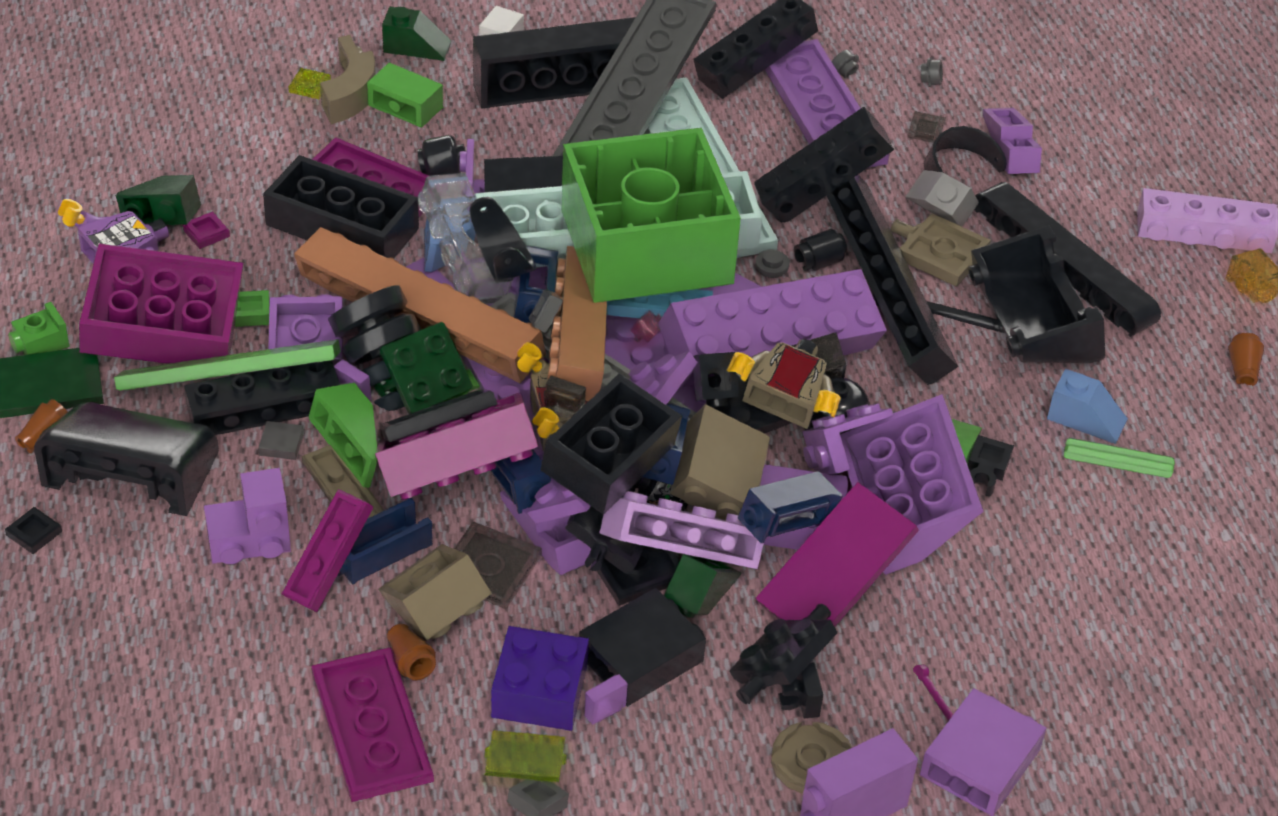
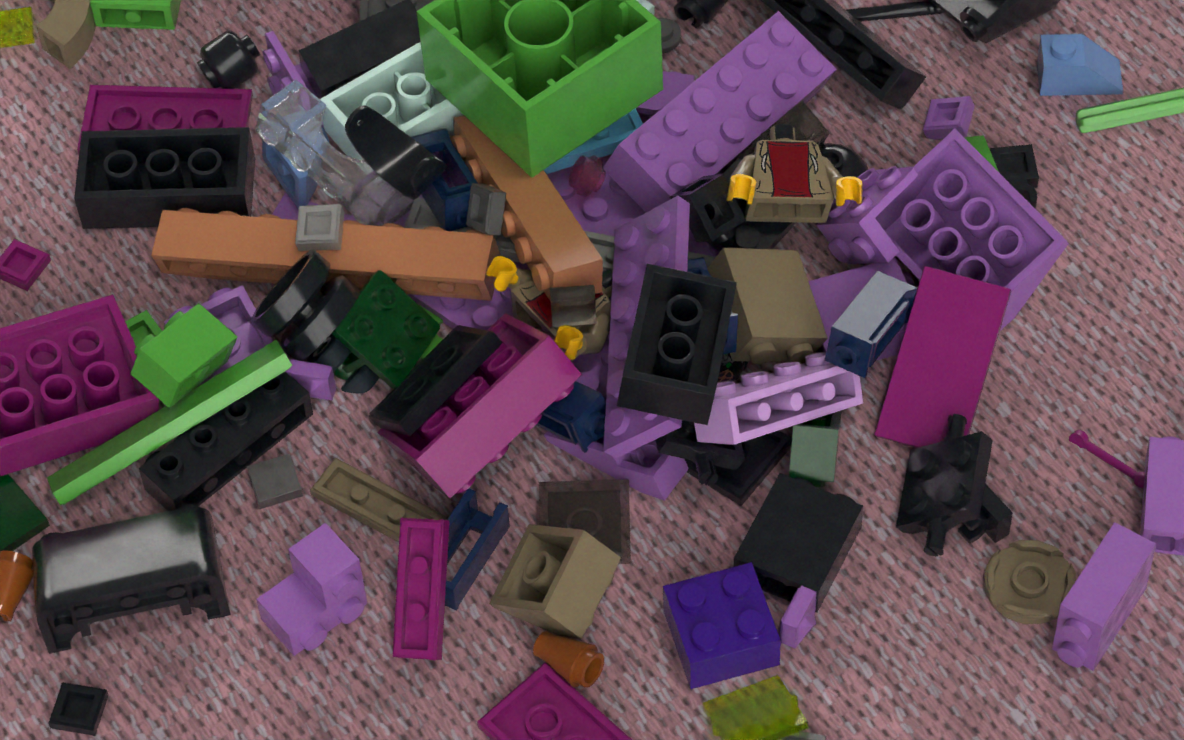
camera: 20 degrees left, 10 degrees up
(263, 320) = (182, 354): none -> bright green brick
(348, 425) = (346, 434): bright green slope -> none
(420, 277) = (320, 227): none -> light grey tile
(964, 402) = (948, 114): none -> medium lavender tile

